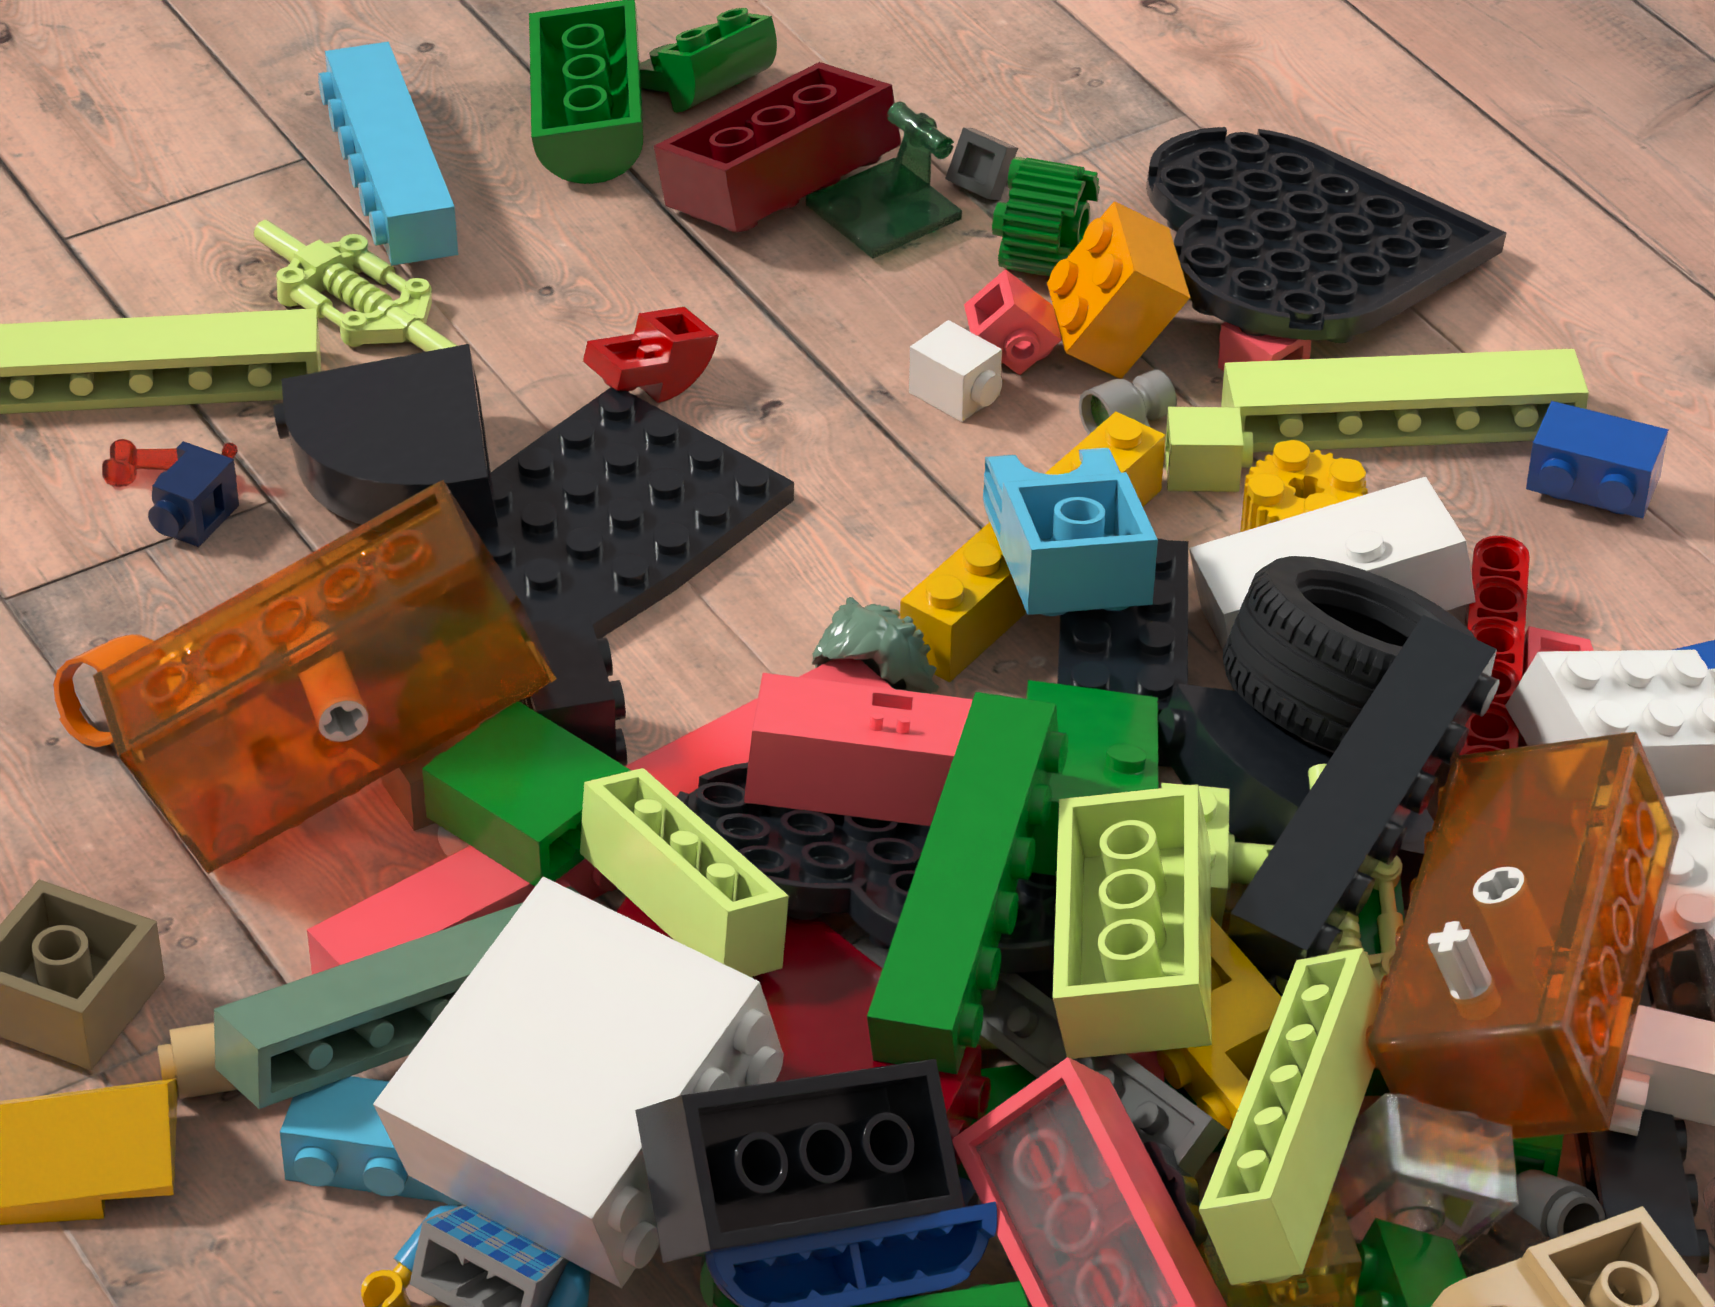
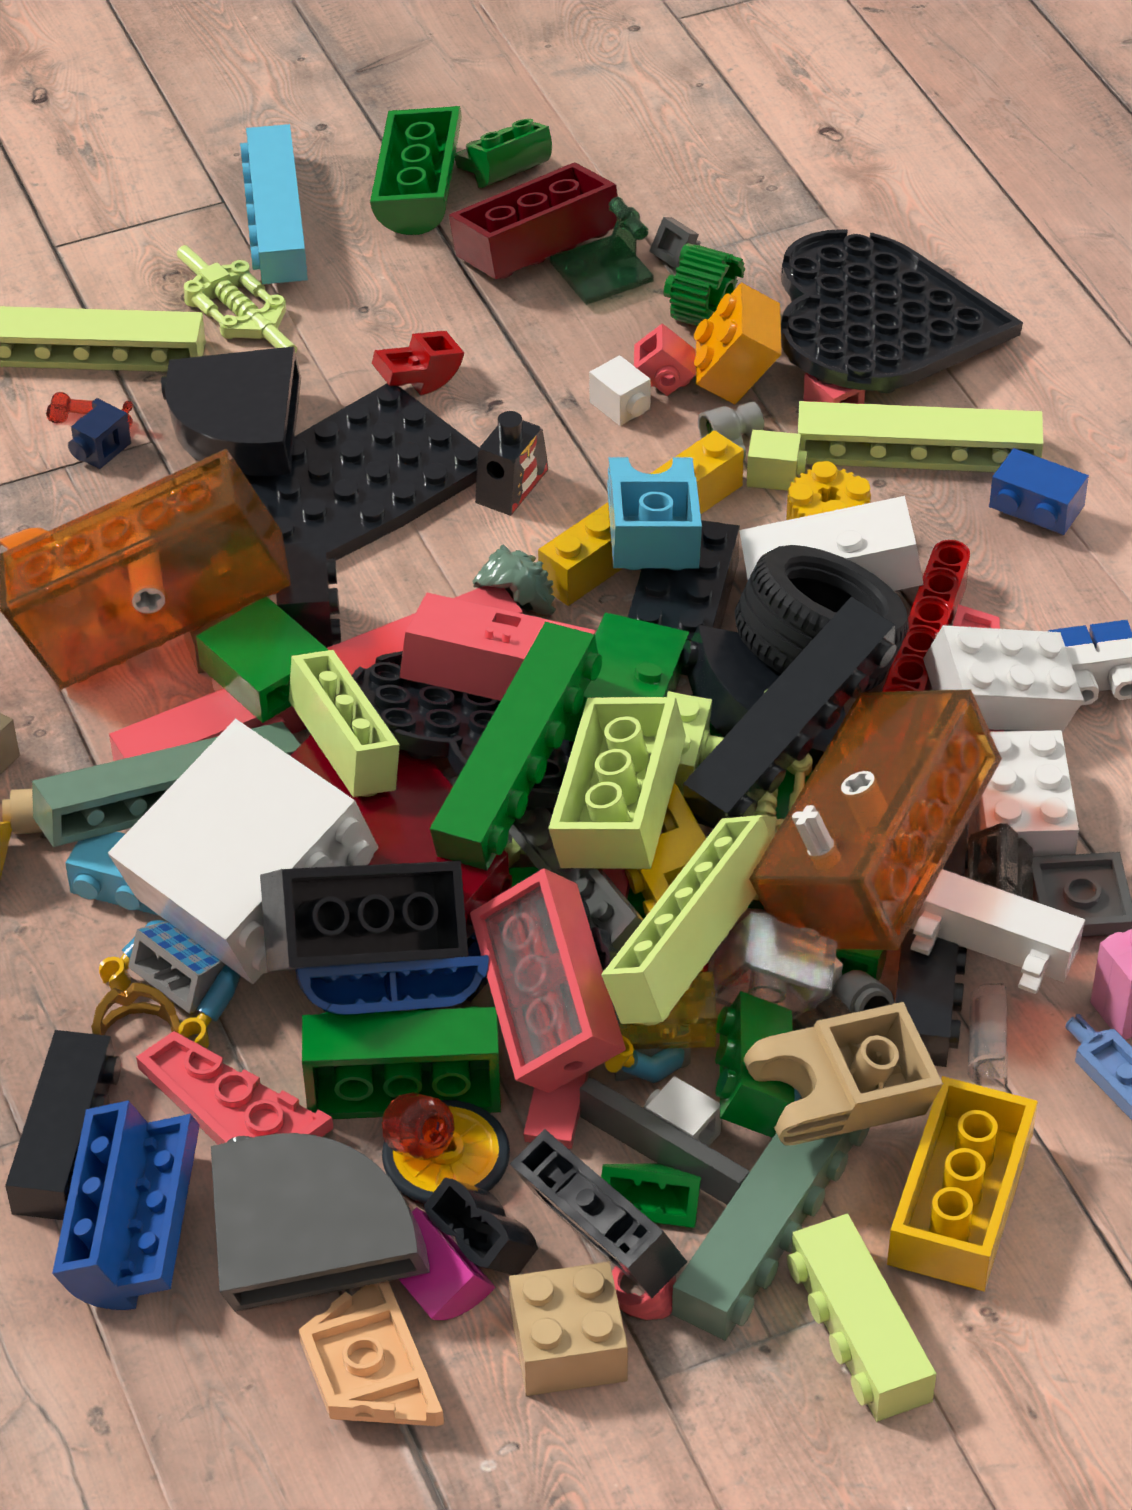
camera: 10 degrees right, 5 degrees up
(827, 458) = (510, 463): none -> black torso

